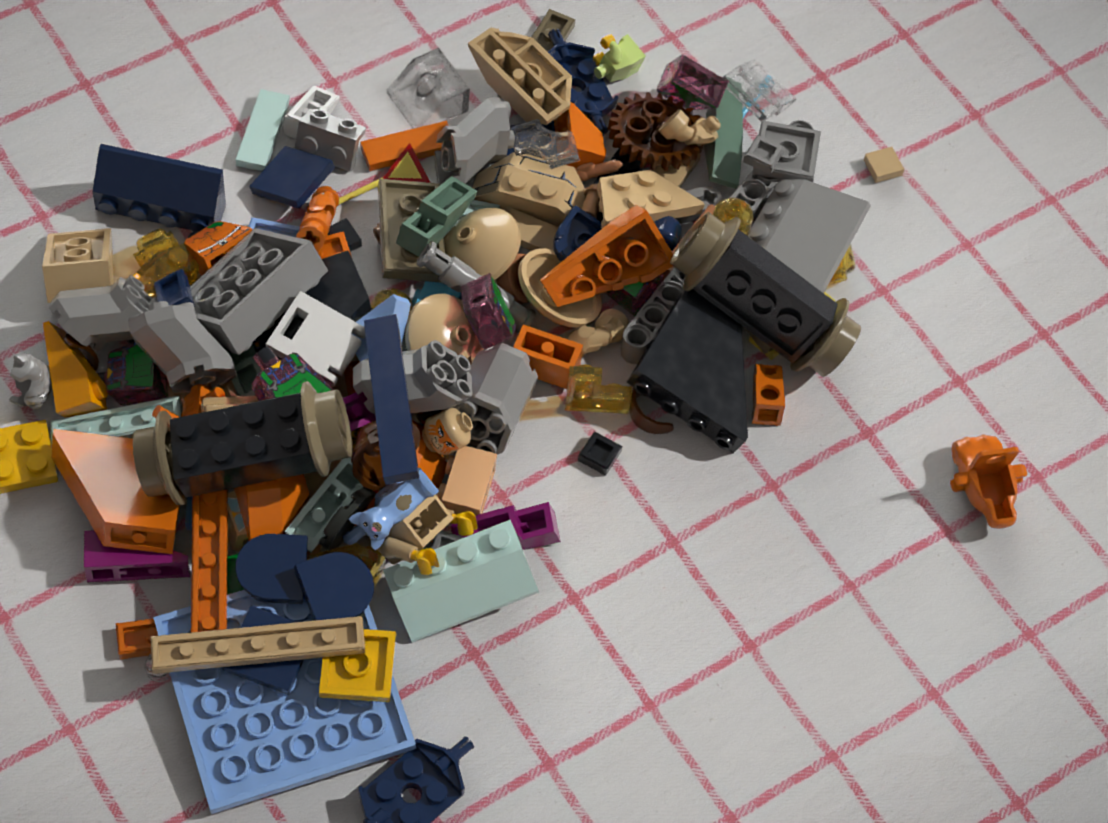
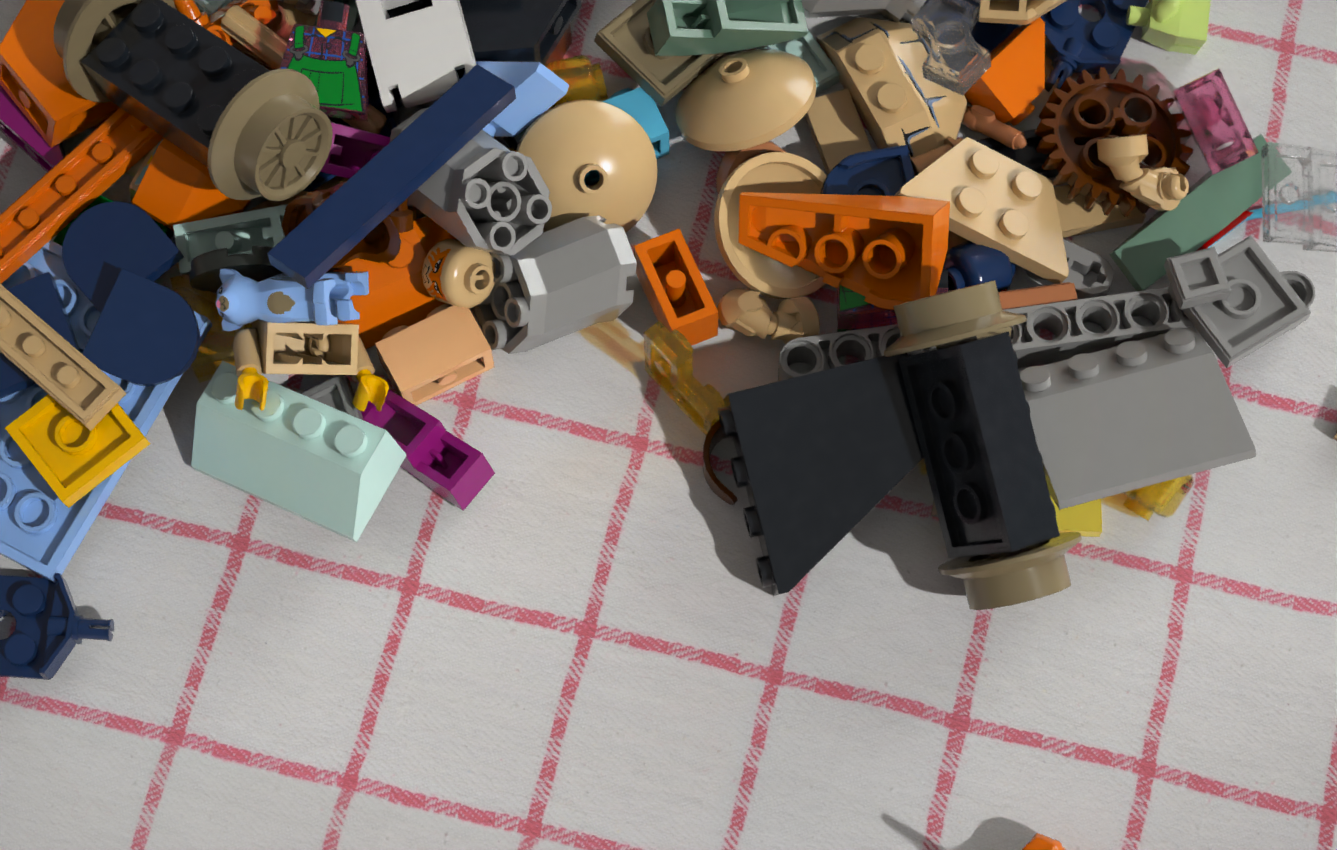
camera: 55 degrees right, 10 degrees up
(456, 273) = (669, 110): light grey piece -> none
(490, 316) = (647, 179): clear pink torso -> none
(600, 453) = (621, 454): black tile -> none
(735, 207) = (1058, 322): clear yellow head -> none
(768, 395) = (884, 564): orange leg -> none

